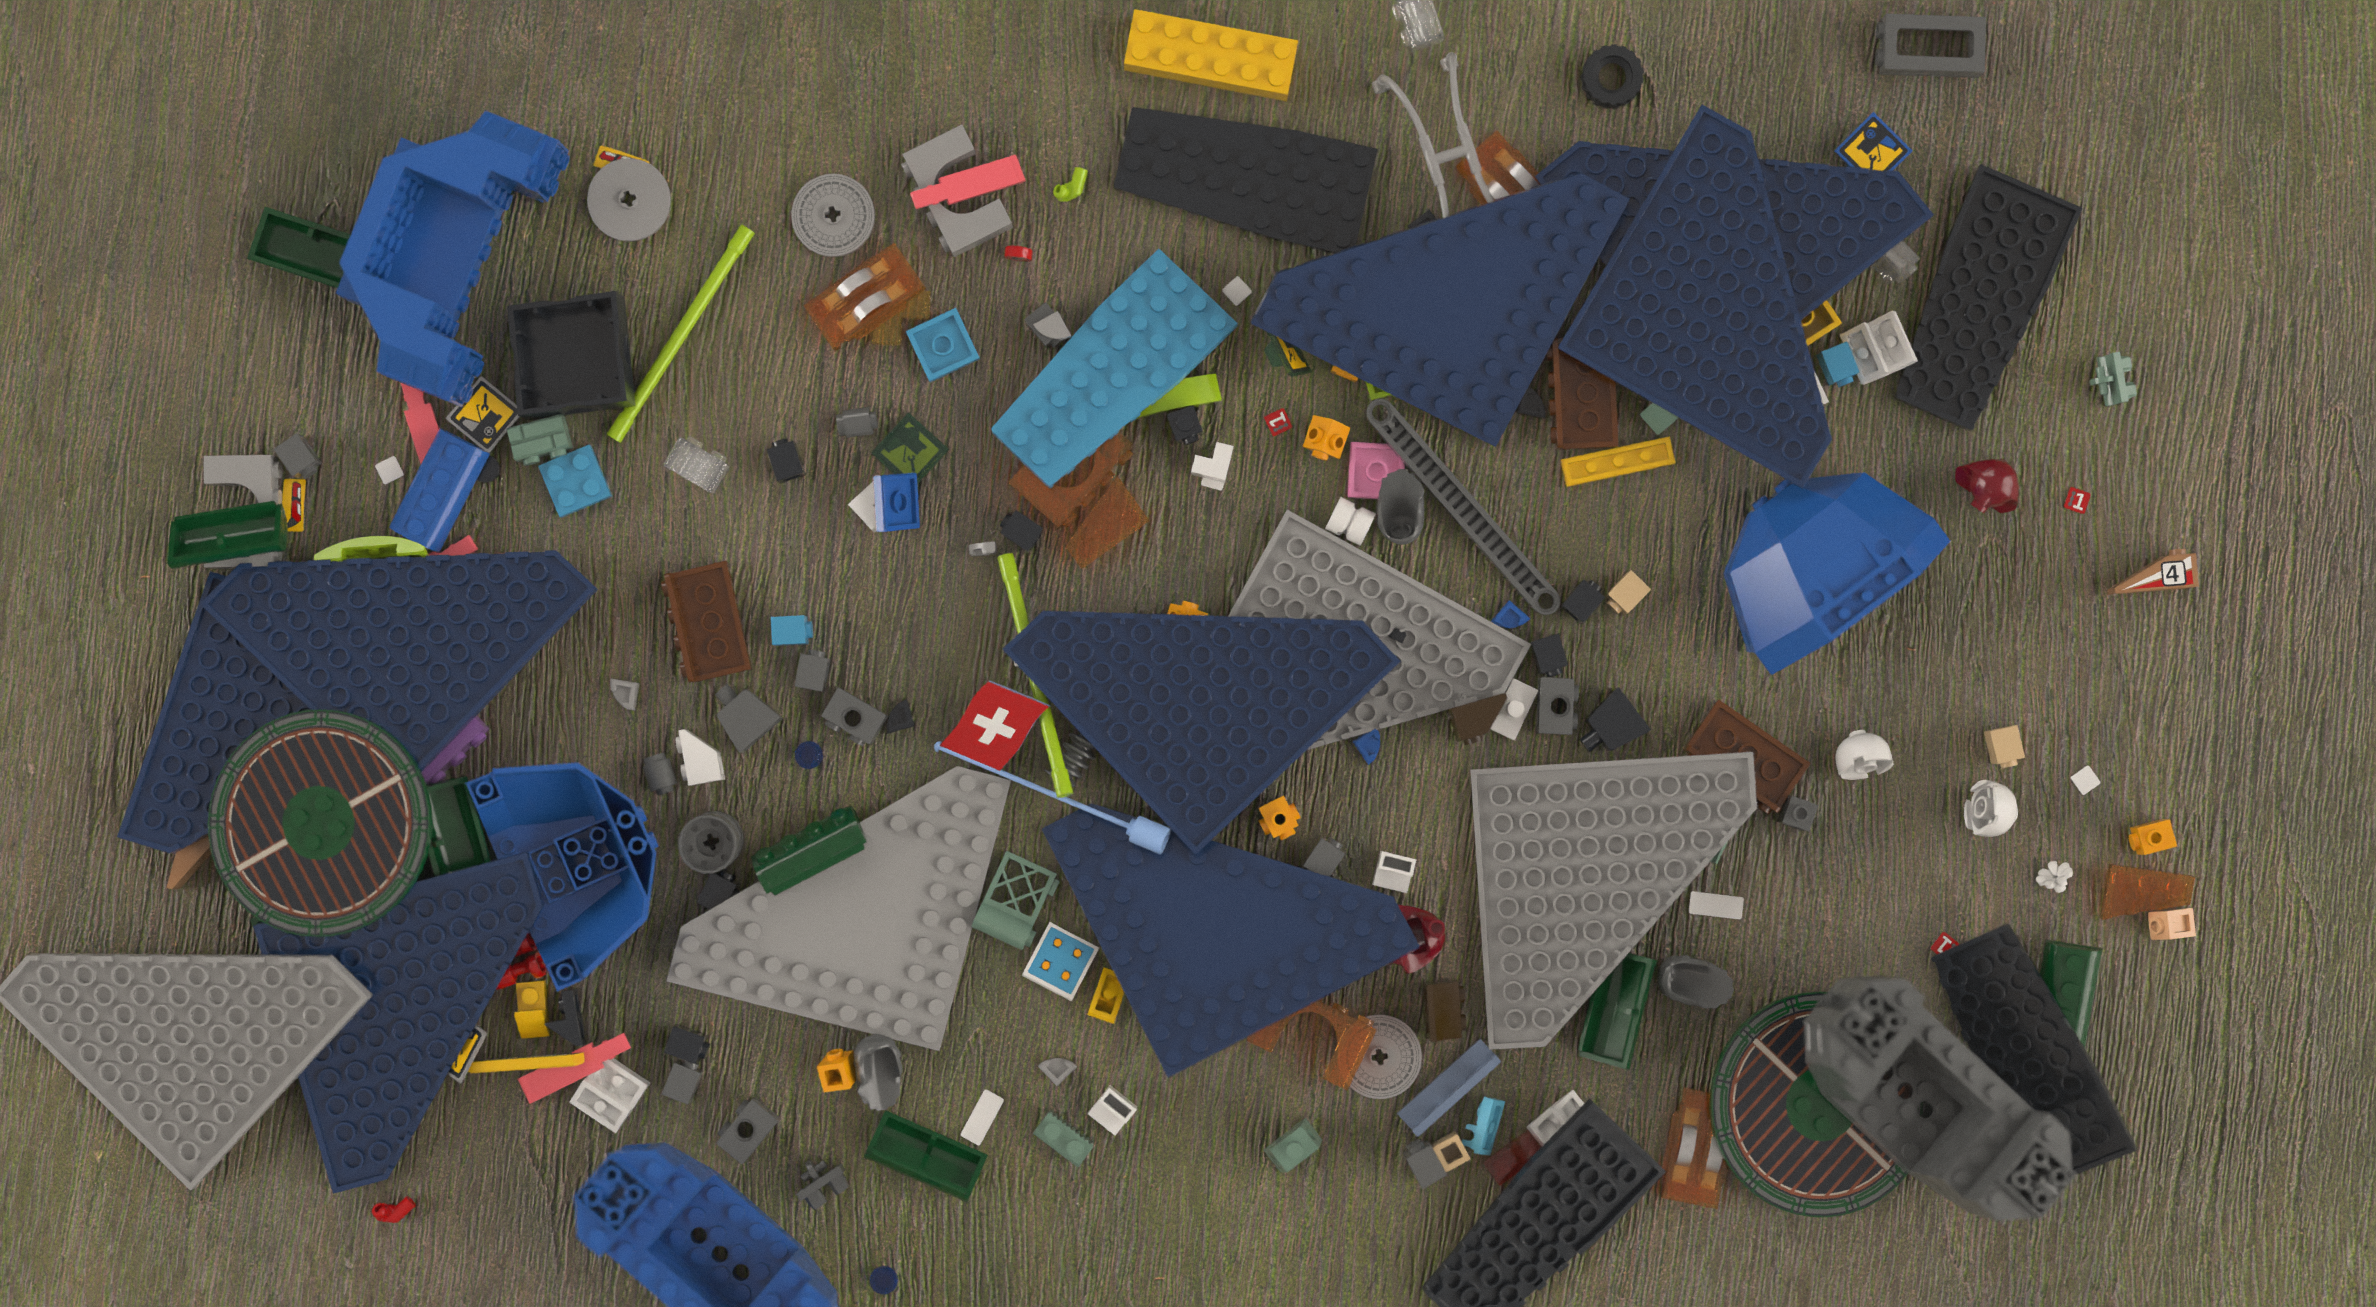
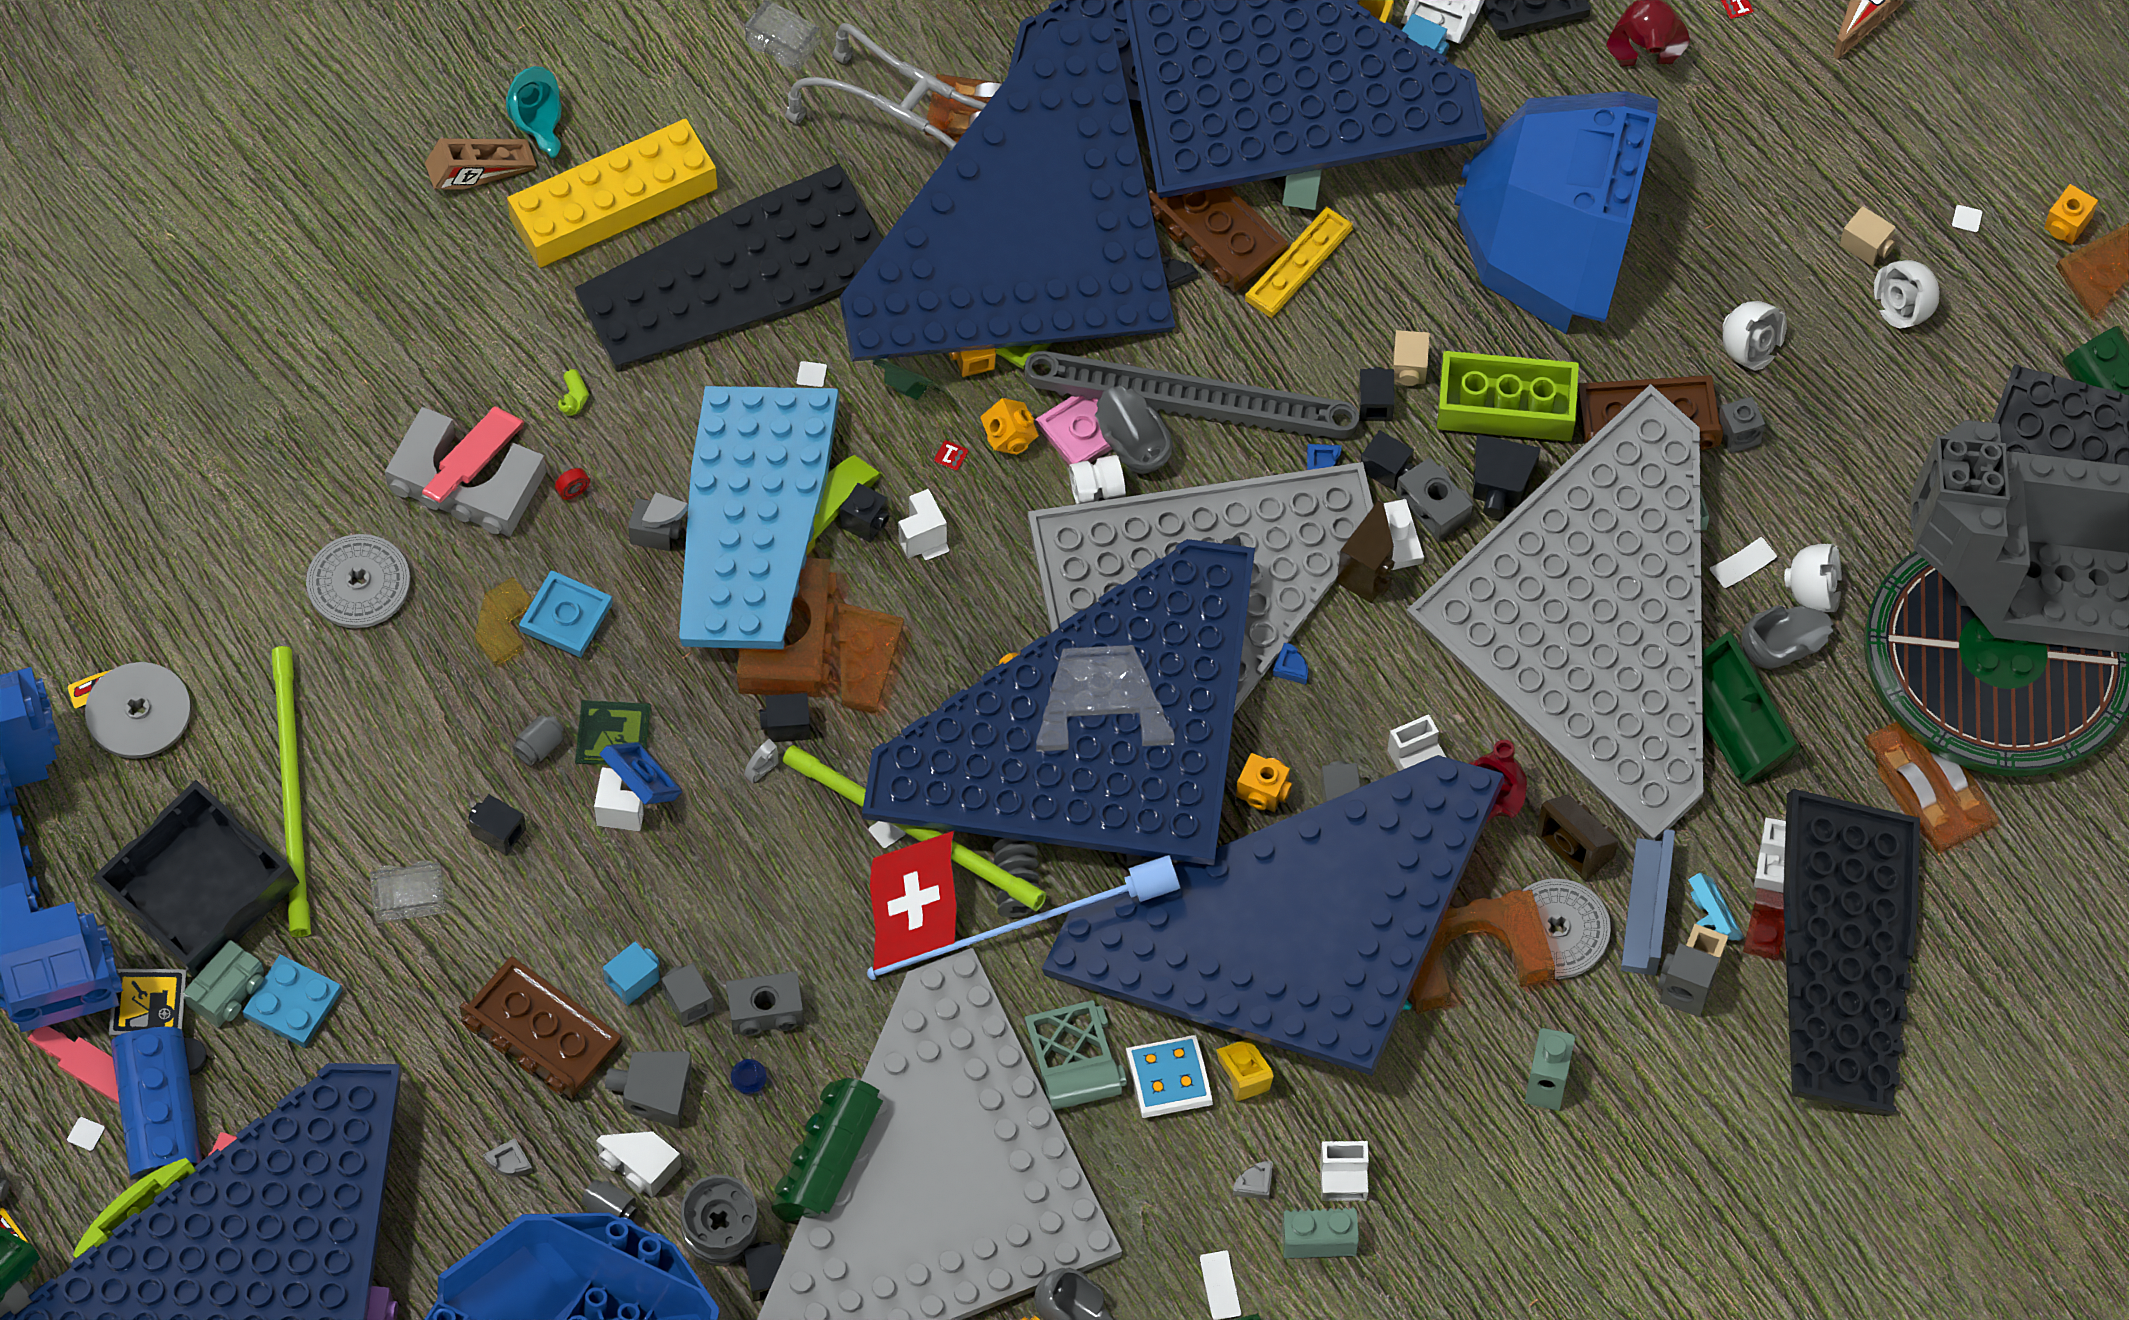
camera: 40 degrees left, 25 degrees down
(865, 297) = (452, 626): clear orange piece -> none
(900, 717) = (812, 976): black tile -> none
(1218, 681) = (1101, 684): none -> clear wing
(1663, 673) = (1507, 396): none -> lime brick
(1747, 959) = (1815, 577): none -> white cylinder
(2055, 877) = (2020, 309): white plant -> none

